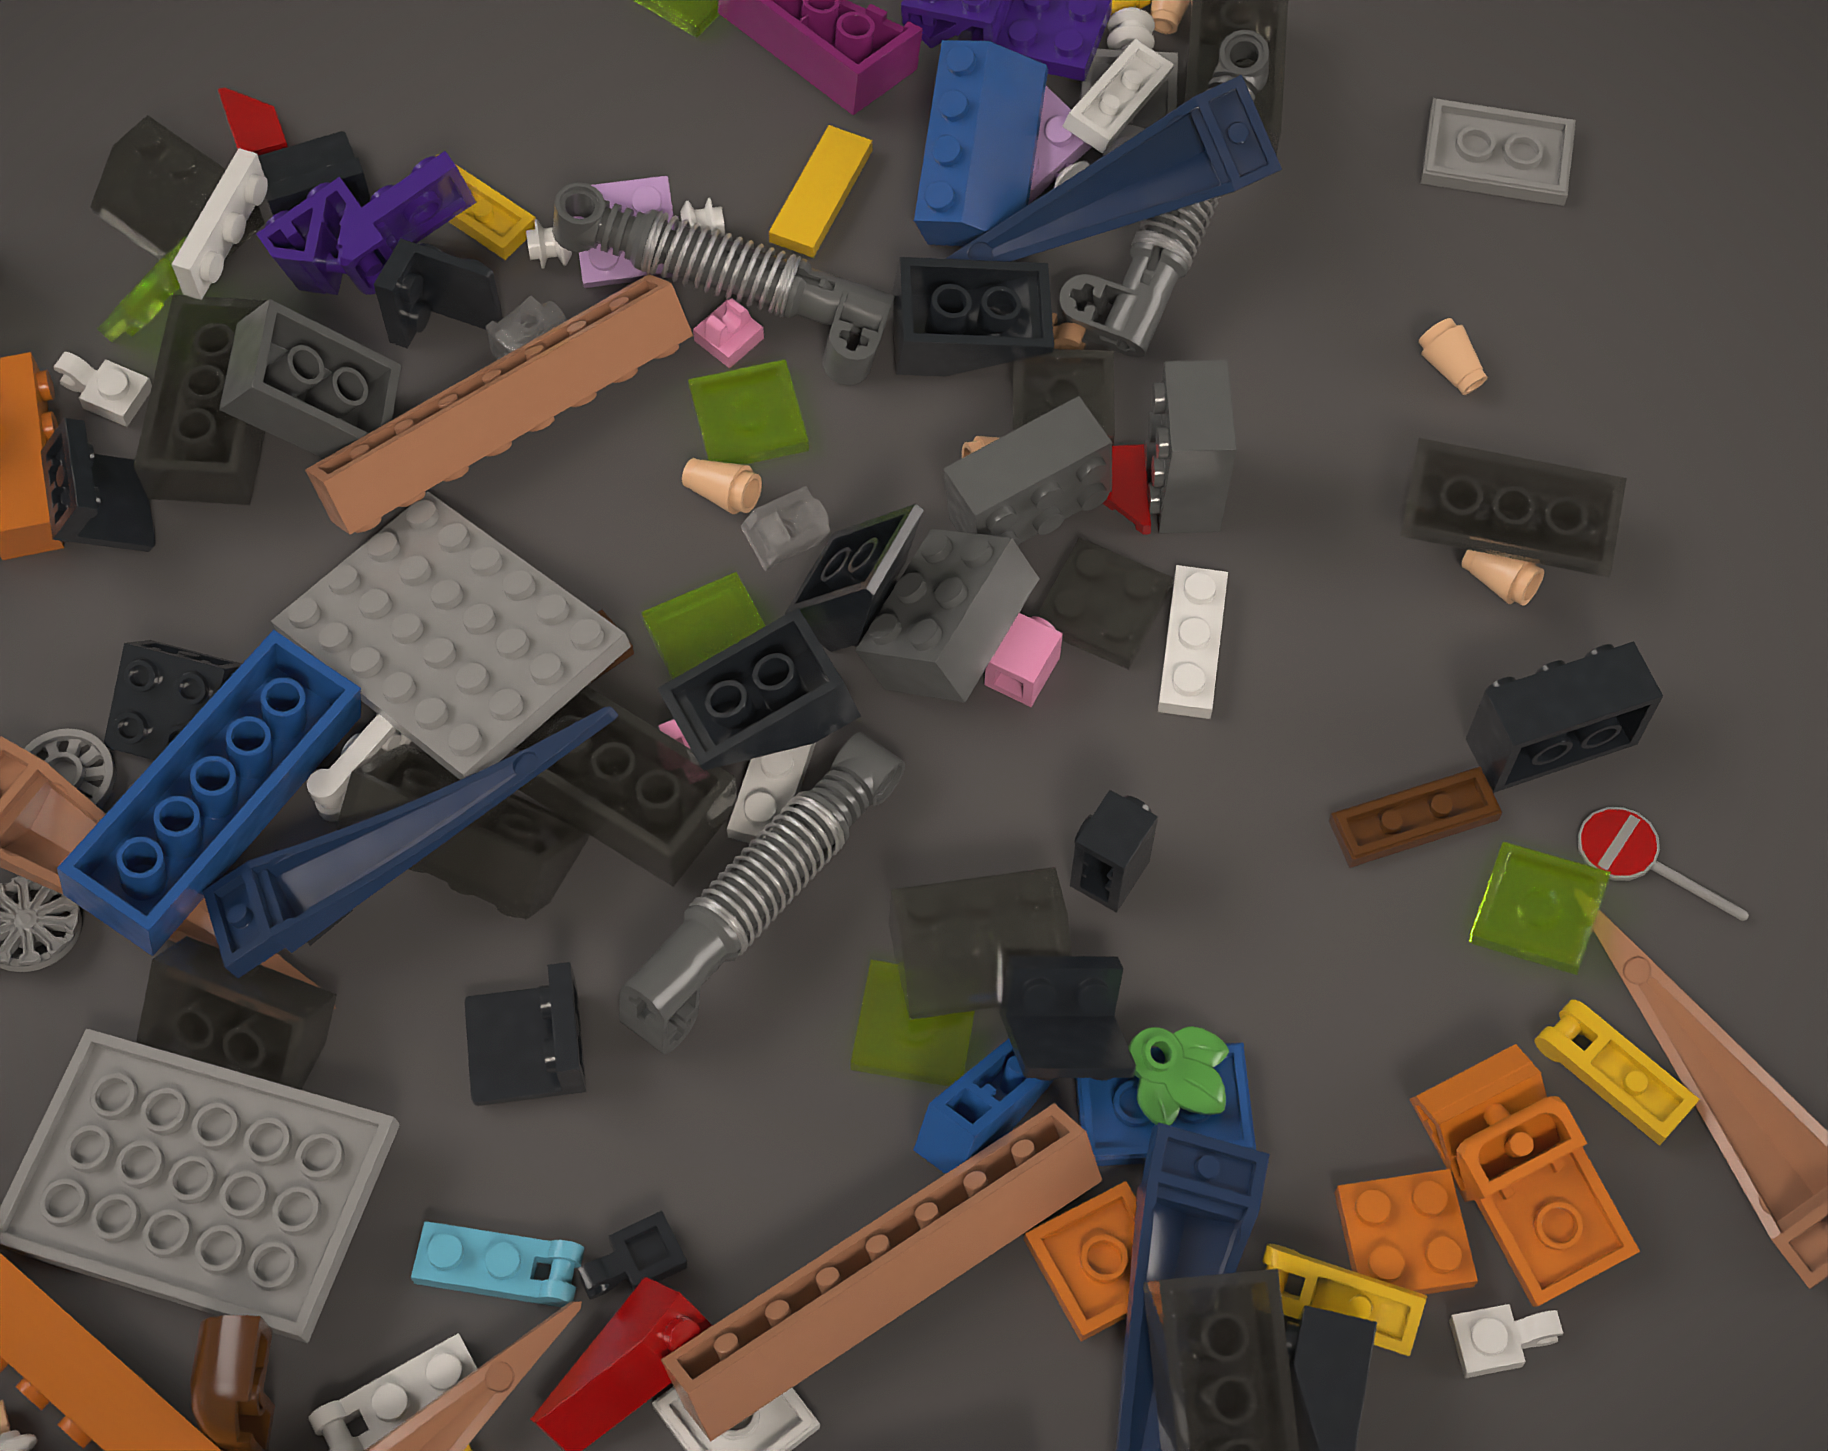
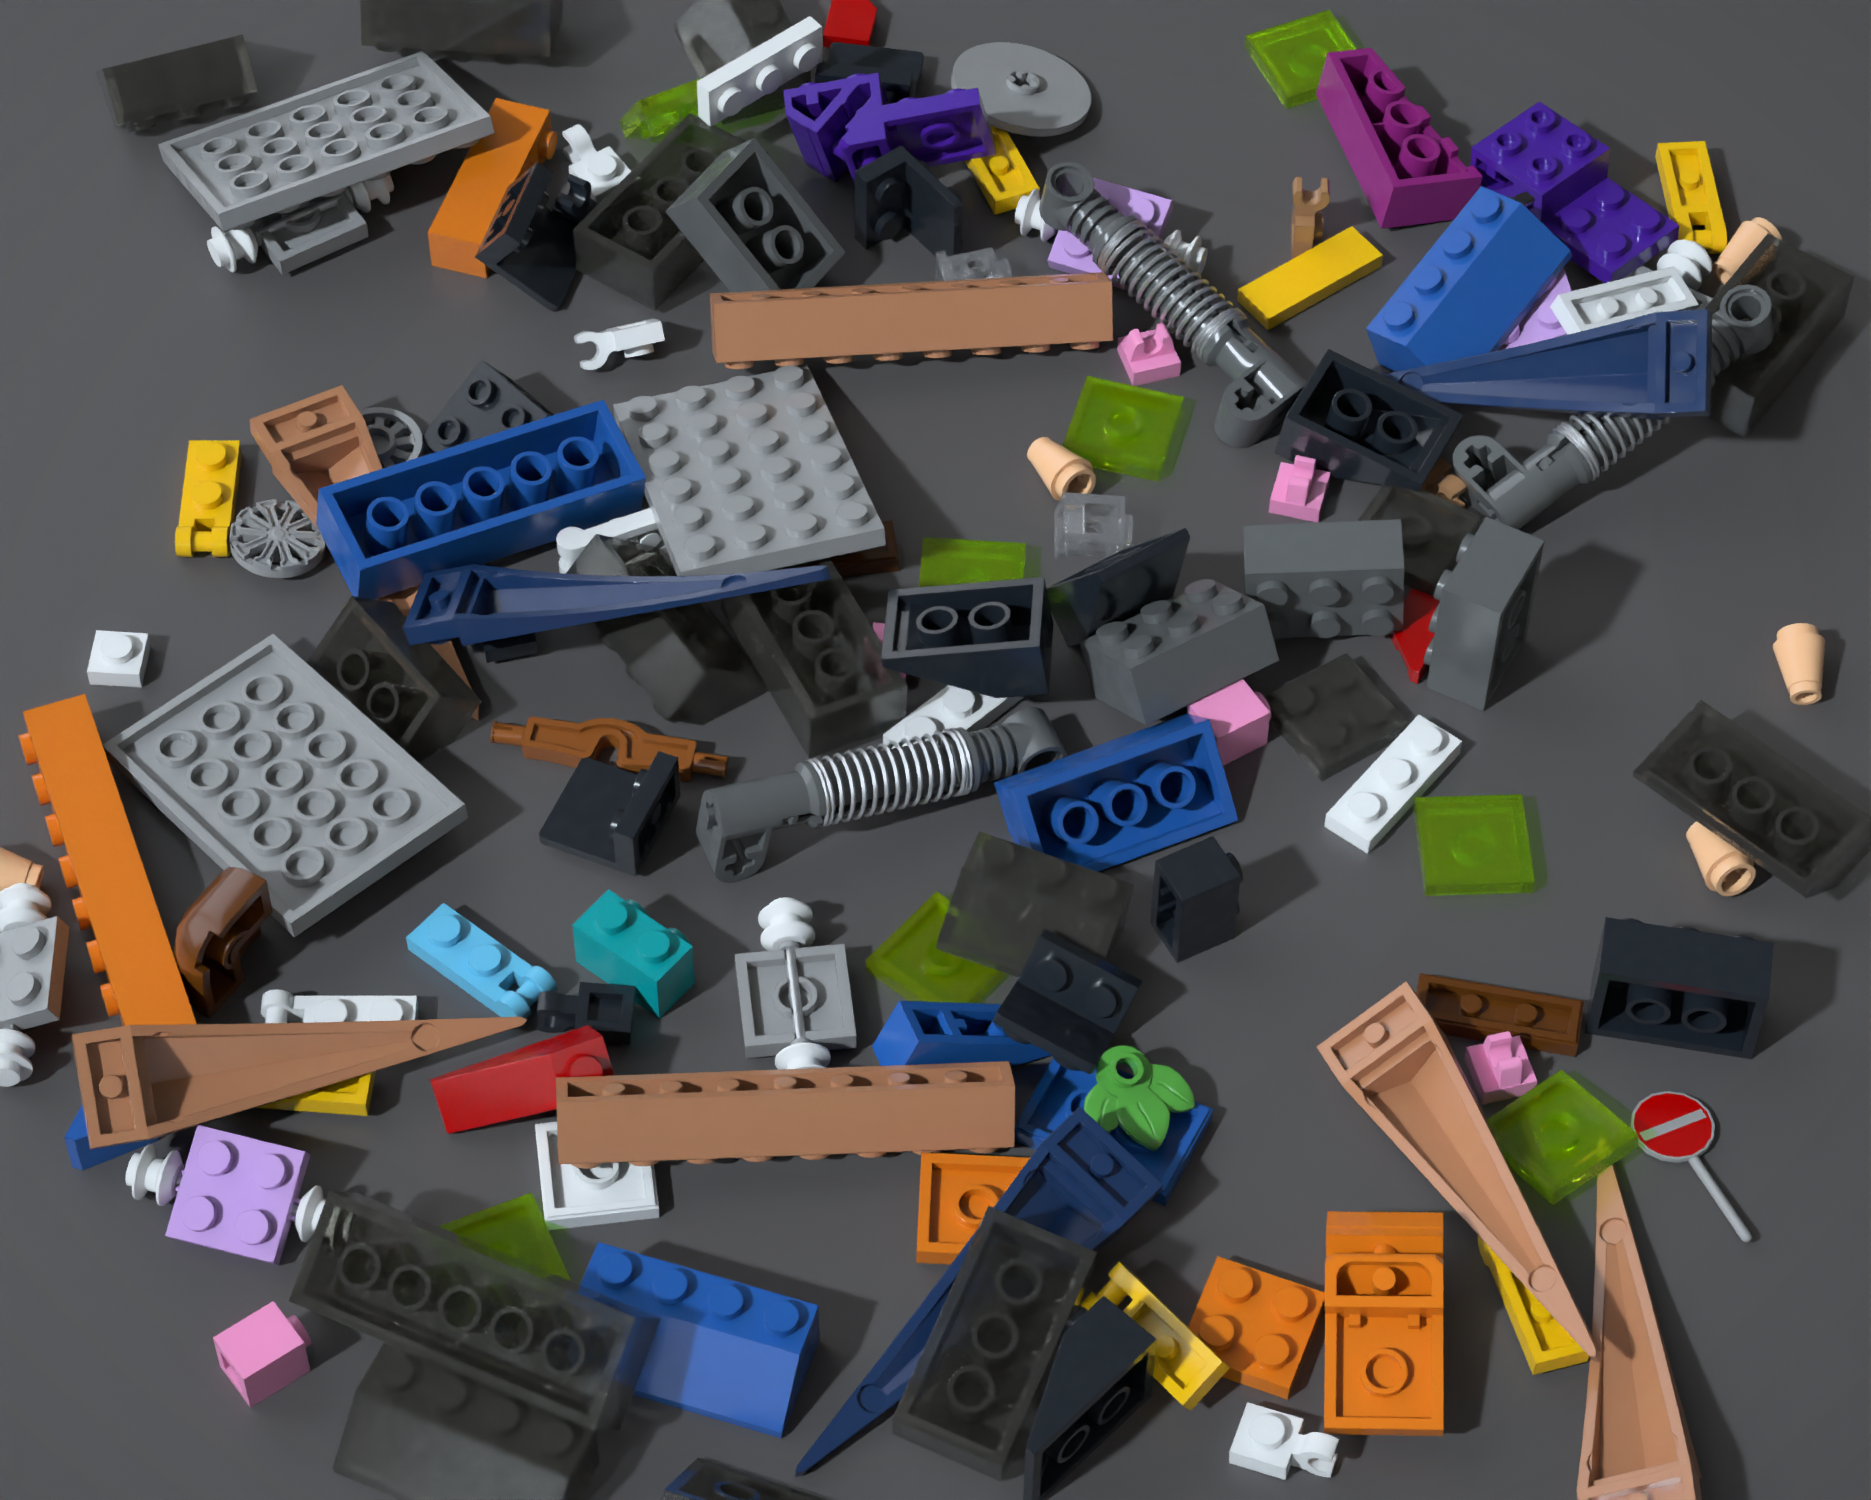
camera: 30 degrees right, 10 degrees down
(119, 437) = (577, 203): none -> black plate
(244, 546) = (633, 338): none -> white plate
(451, 982) = (571, 741): none -> dark orange piece
(464, 117) = (1024, 88): none -> light grey piece
(640, 1175) = (631, 949): none -> teal brick
(788, 136) = (1306, 217): none -> medium nougat plate
(812, 1137) = (794, 994): none -> light grey plate
(939, 399) = (1300, 490): none -> bright pink tile
(975, 781) = (1122, 796): none -> blue slope
(1295, 665) = (1473, 845): none -> clear neon green tile
(1409, 934) = (1417, 1093): none -> nougat plate
(1451, 868) = (1500, 1068): none -> bright pink tile

